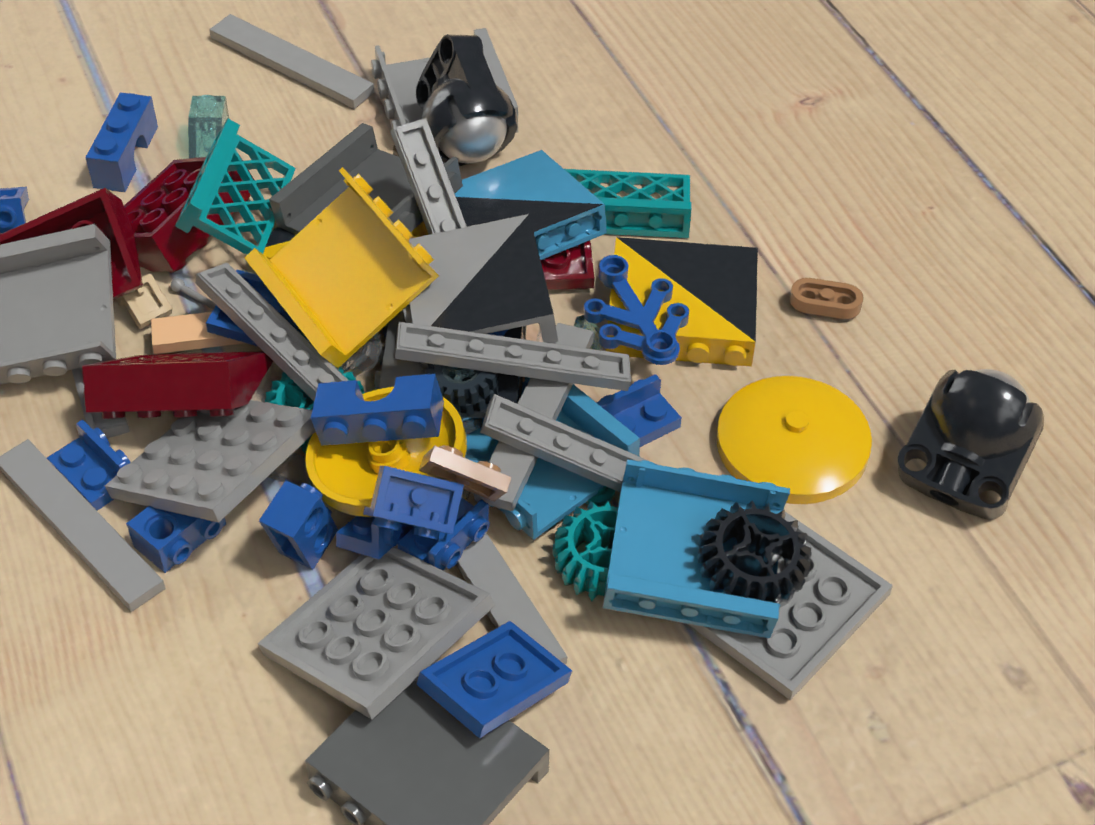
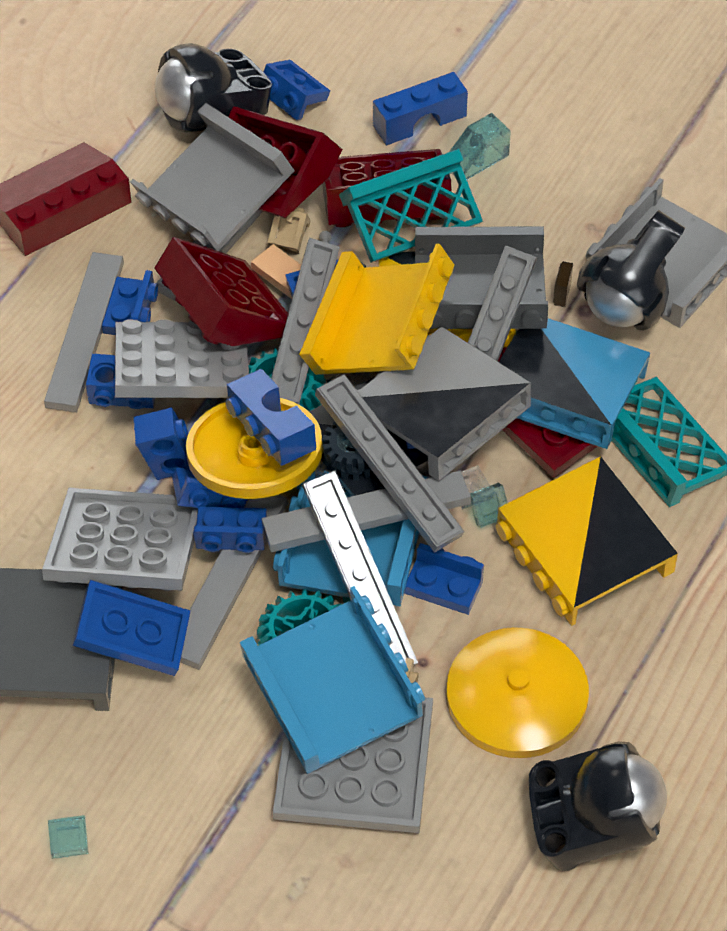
camera: 55 degrees right, 5 degrees up
(292, 61) = (609, 141): light grey tile -> none
(414, 501) = (209, 487): blue bracket -> none
(479, 477) = (261, 511): plate -> none
(656, 345) = (526, 518): blue plant -> none
(760, 542) = (331, 699): black gear -> none
(826, 298) = (683, 635): medium nougat plate -> none

